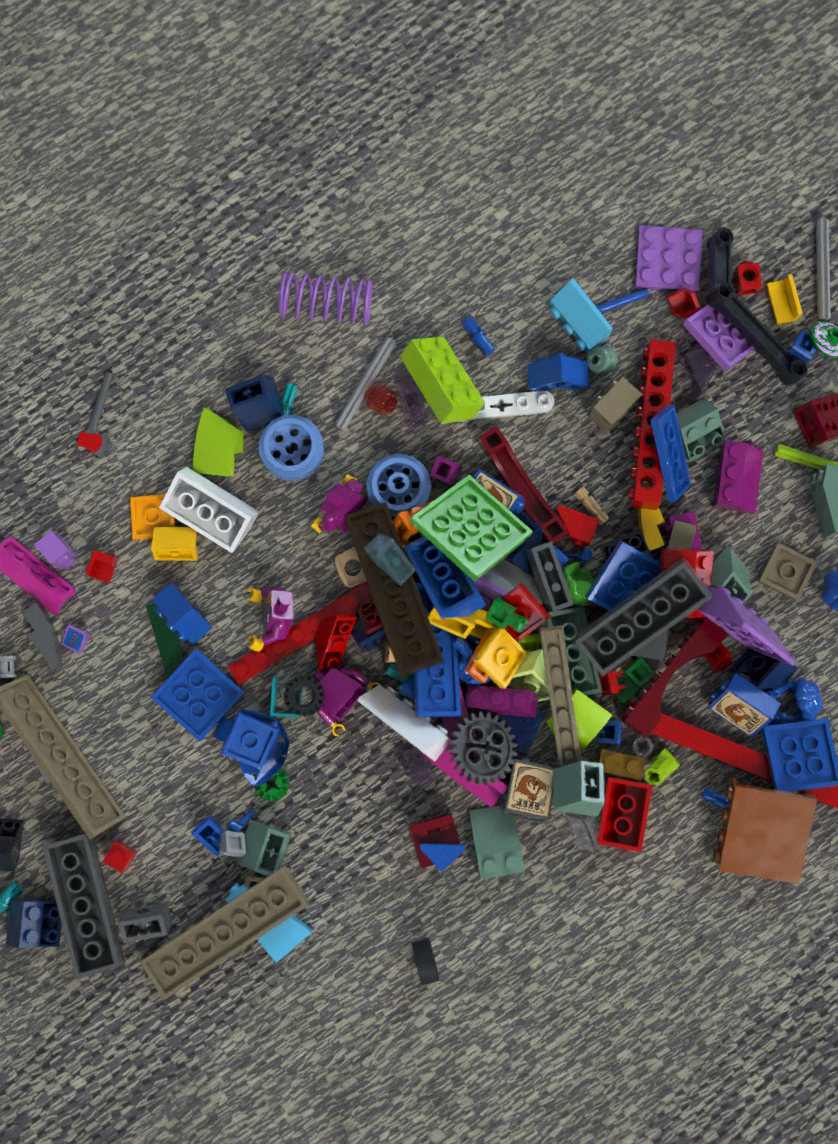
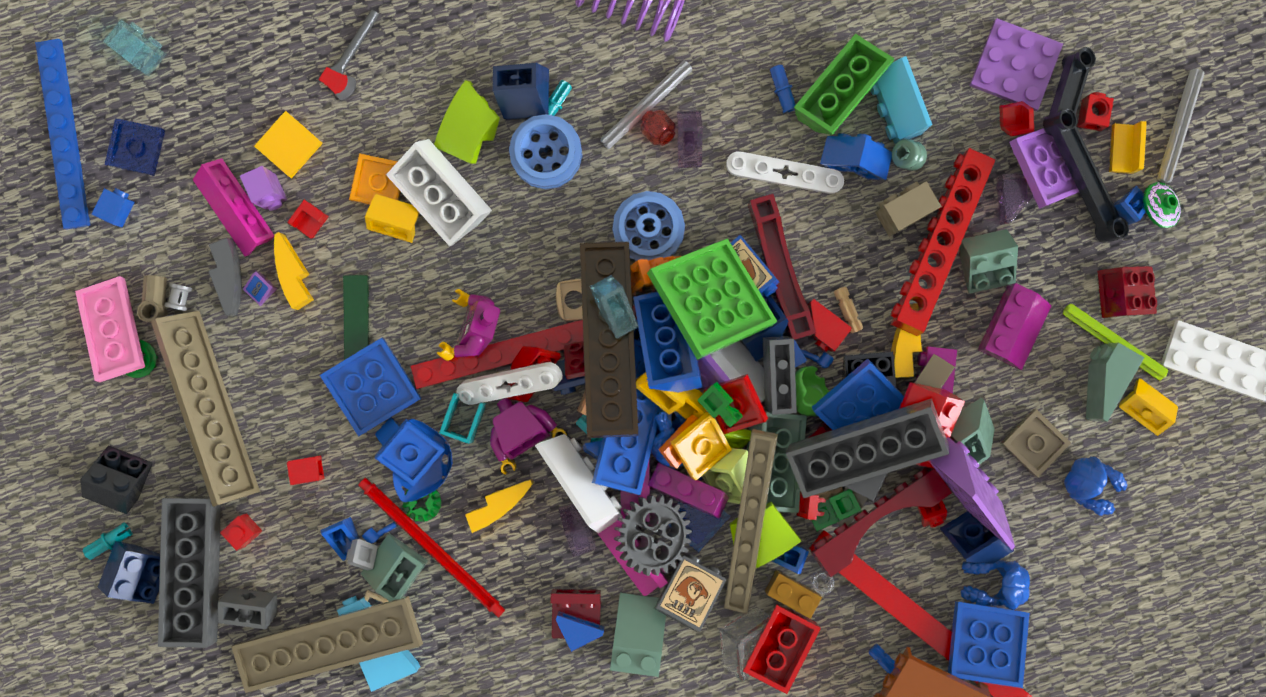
camera: 20 degrees right, 5 degrees up
(65, 507) = (288, 144): none -> yellow tile
(100, 617) = (290, 273): none -> yellow slope
(161, 785) = (305, 470): none -> red panel
(181, 614) = (376, 296): blue brick -> none
(290, 695) = (468, 414): black tyre -> none
(292, 820) = (431, 547): none -> red piece
(333, 645) = (526, 381): none -> white piece
(340, 502) = (578, 228): magenta torso -> none
(340, 765) = (498, 505): none -> yellow slope
(442, 379) = (729, 125): lime brick -> none
(446, 470) = (704, 226): magenta brick -> none
(527, 318) = (842, 85): none -> bright green slope
(579, 788) = (742, 609): sand green slope -> none
(623, 300) = (952, 96): blue piece -> none
(661, 767) = (836, 610): lime piece -> none
(671, 452) = (952, 279): blue tile -> none
(743, 705) = (944, 572): brick -> none

